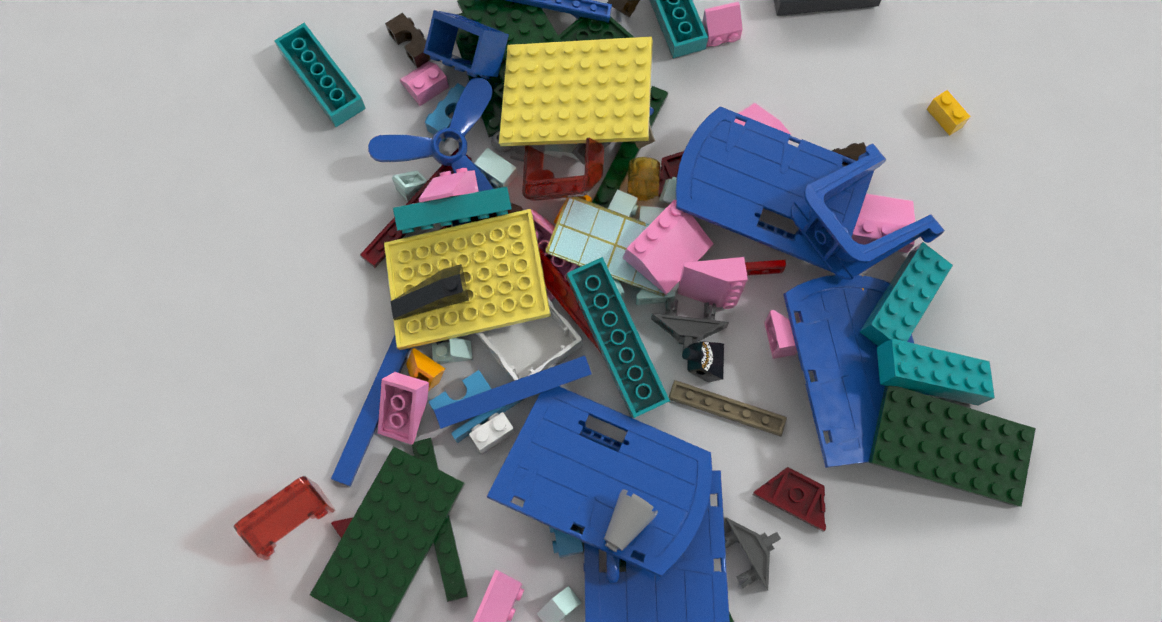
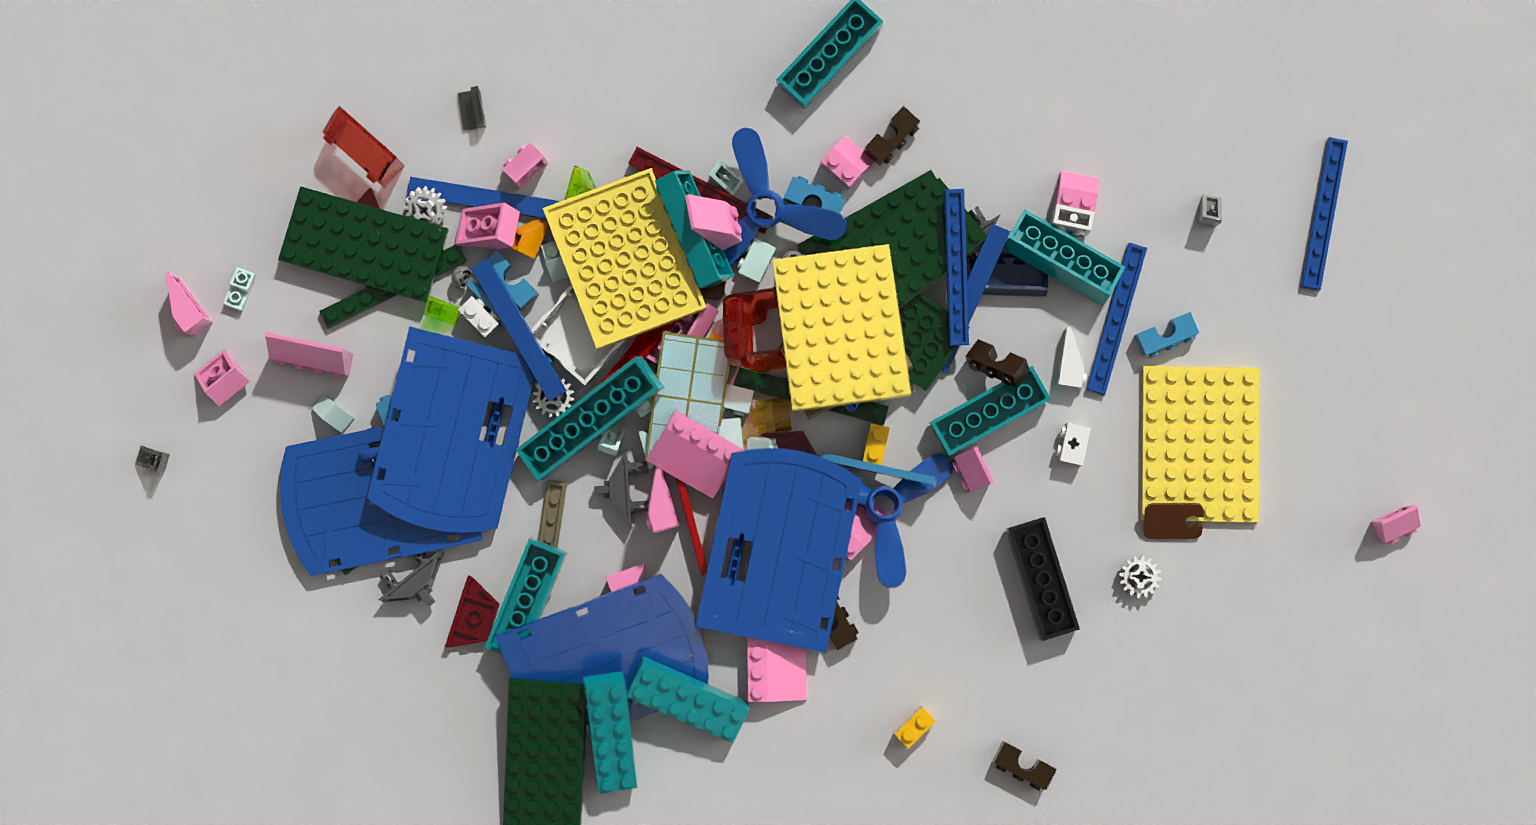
camera: 80 degrees right, 15 degrees up
(279, 404) = (471, 109): none -> clear smoke panel
(349, 360) = (524, 165): none -> bright pink slope
(361, 459) = (423, 198): none -> white gear
(381, 312) = (579, 182): none -> clear neon green slope
(436, 292) = (604, 233): black wedge -> none
(446, 445) = (461, 276): none -> light grey plate
(476, 471) = (442, 311): none -> clear neon green slope
(488, 51) = (895, 205): blue hose -> none
(591, 386) = (559, 404): none -> white gear
(628, 520) = (407, 458): light grey cone -> none
(644, 326) = (612, 439): none -> light aqua slope
(685, 100) = (876, 444): none -> yellow brick
(705, 360) = (589, 509): black torso -> none
(712, 91) = (879, 469): none -> dark azure tile
(781, 98) = (888, 544): none -> blue piece
(782, 434) = (528, 589): none -> teal brick
(833, 240) = (733, 600): blue piece -> none
(982, 43) = (1039, 774): none -> dark brown arch

